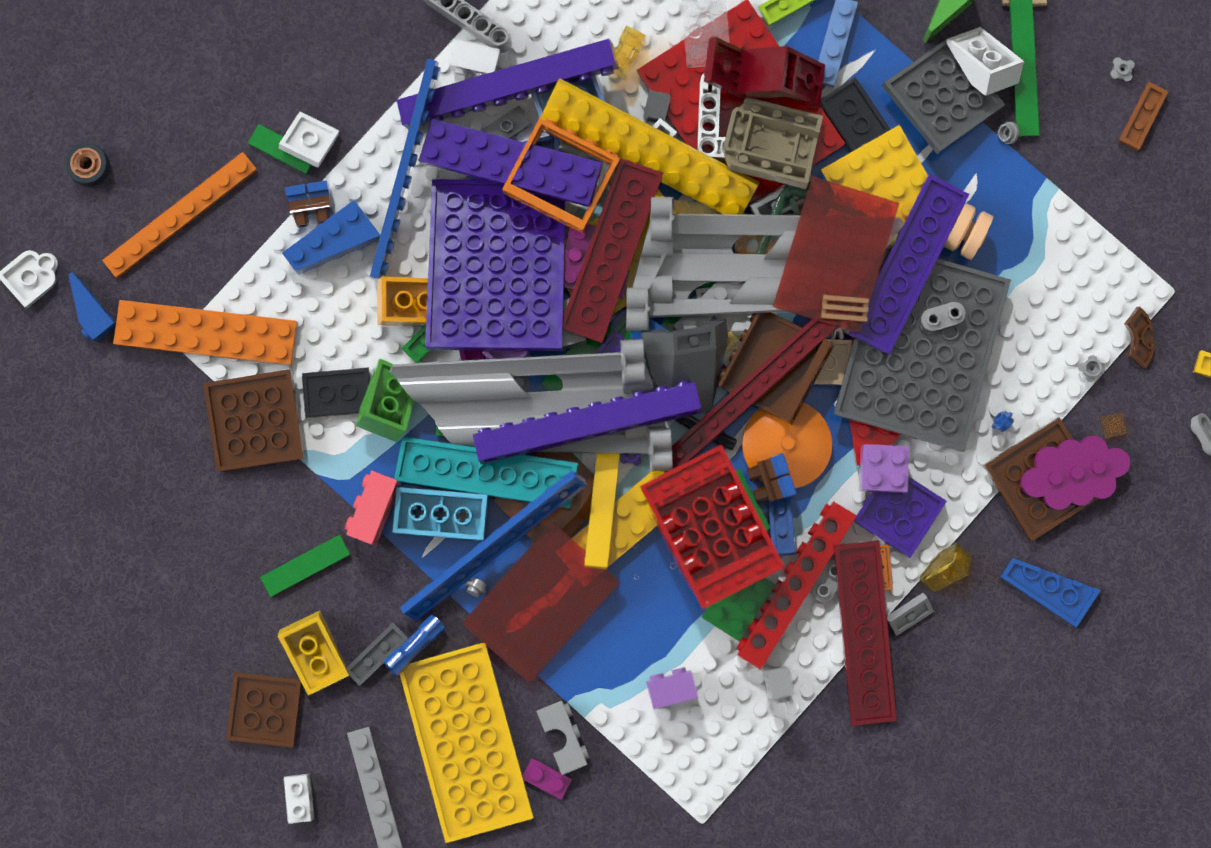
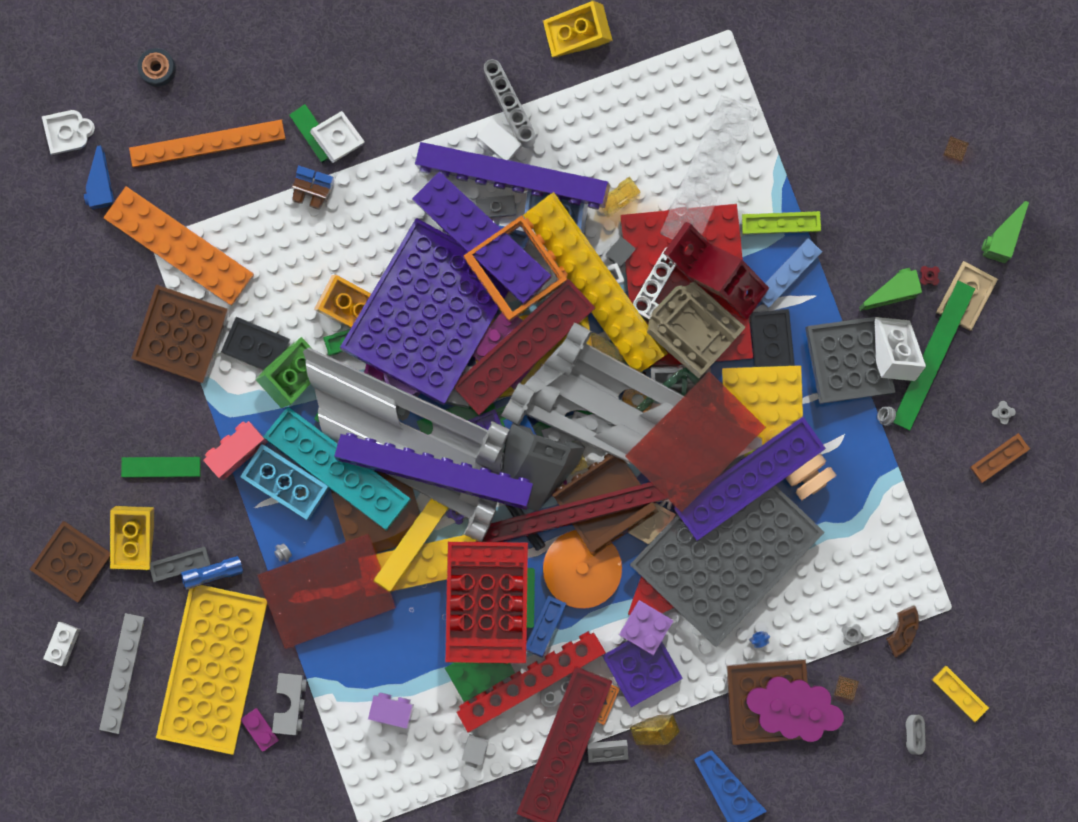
camera: 25 degrees right, 0 degrees up
(332, 239) = (314, 225): blue wedge -> none
(408, 160) = (404, 194): blue plate -> none
(494, 545) = (312, 528): blue plate -> none
(769, 469) = (554, 581): reddish brown hips -> none
(864, 309) = (664, 478): medium nougat tile -> none
(943, 317) = (755, 533): light grey plate -> none

